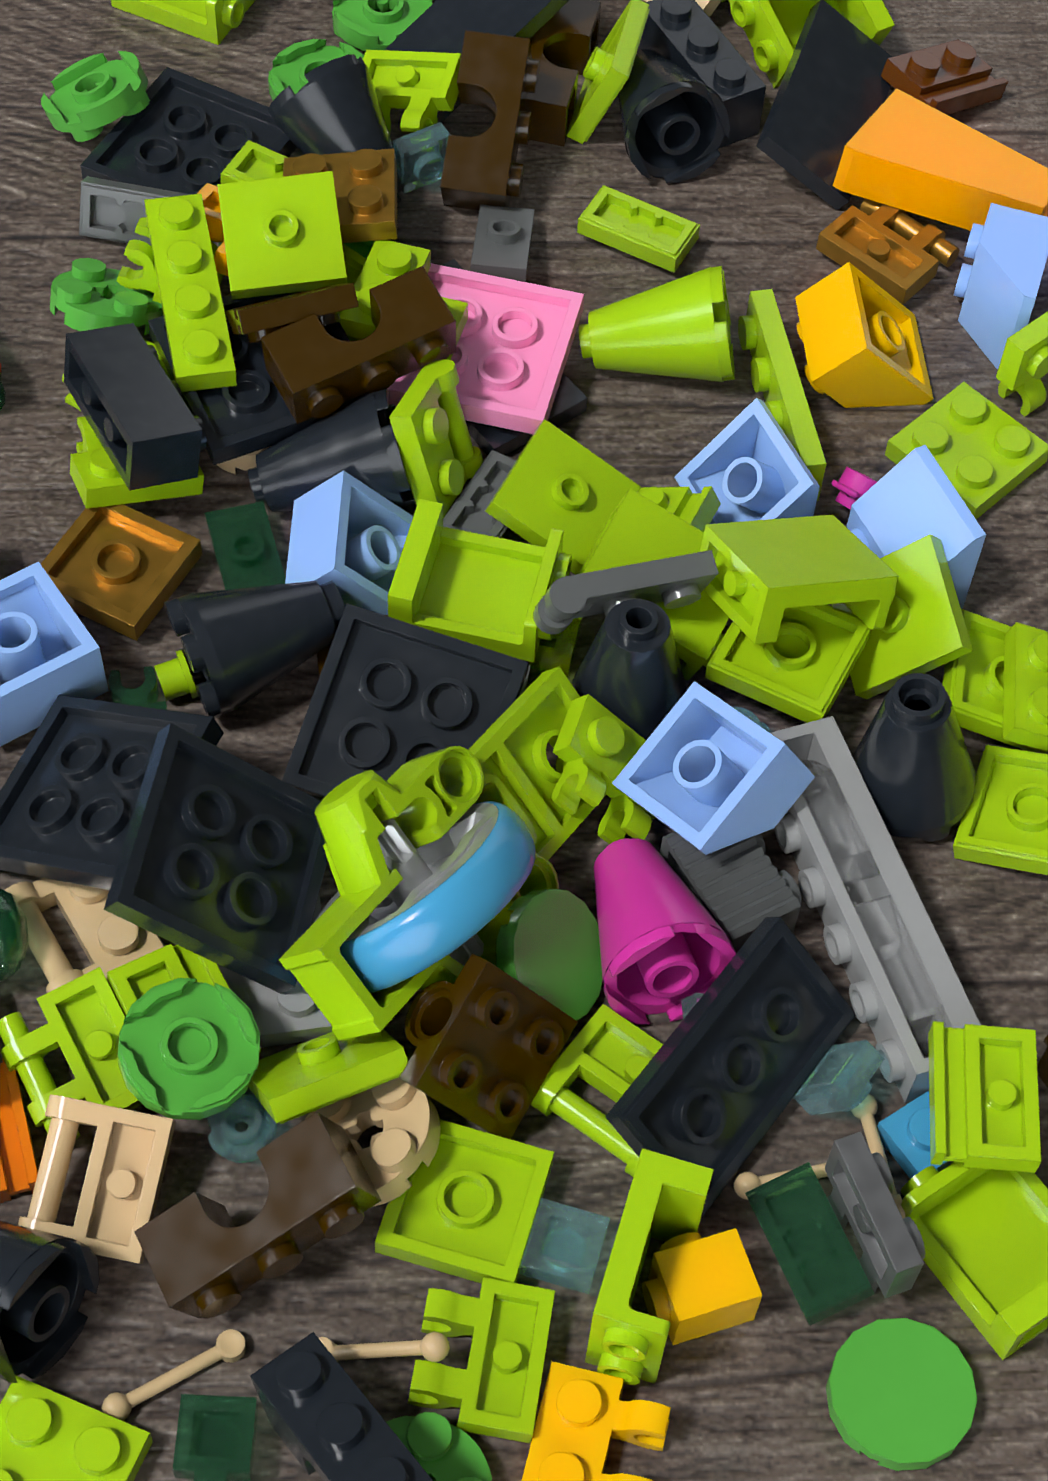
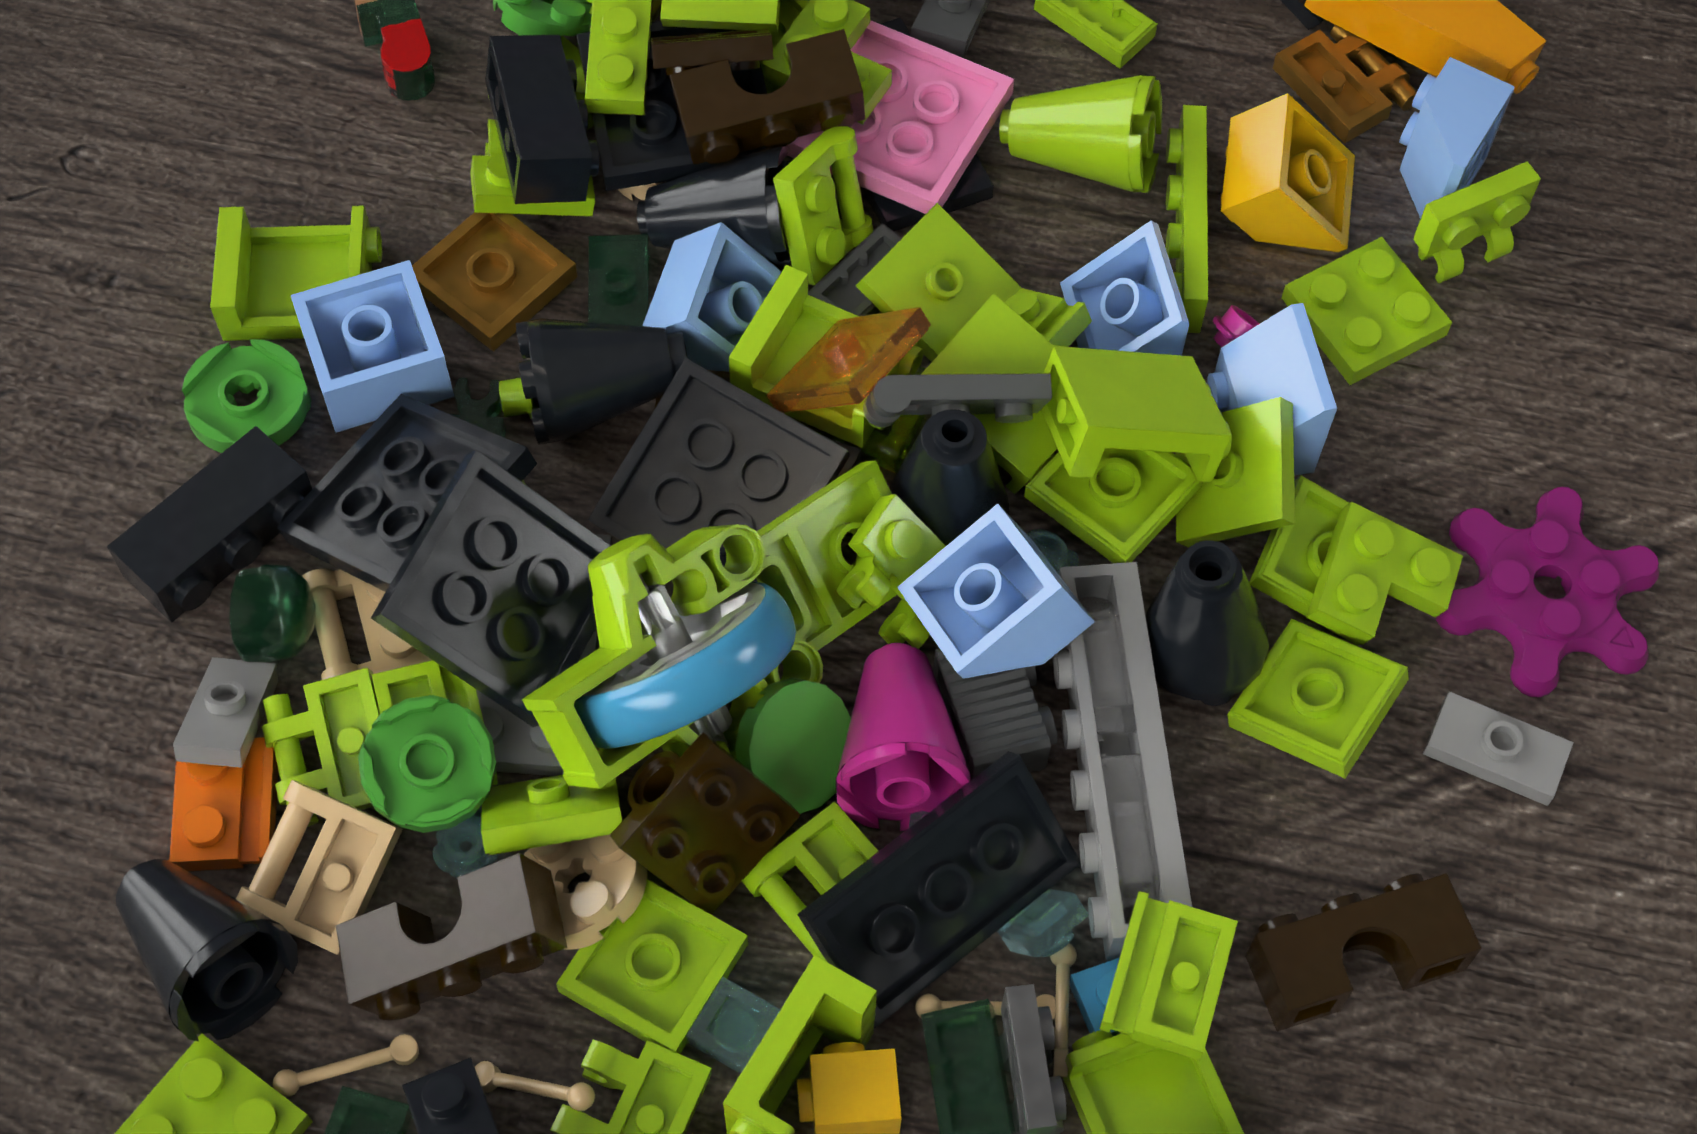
camera: 15 degrees right, 5 degrees up
(508, 576) = (849, 360): none -> clear orange plate

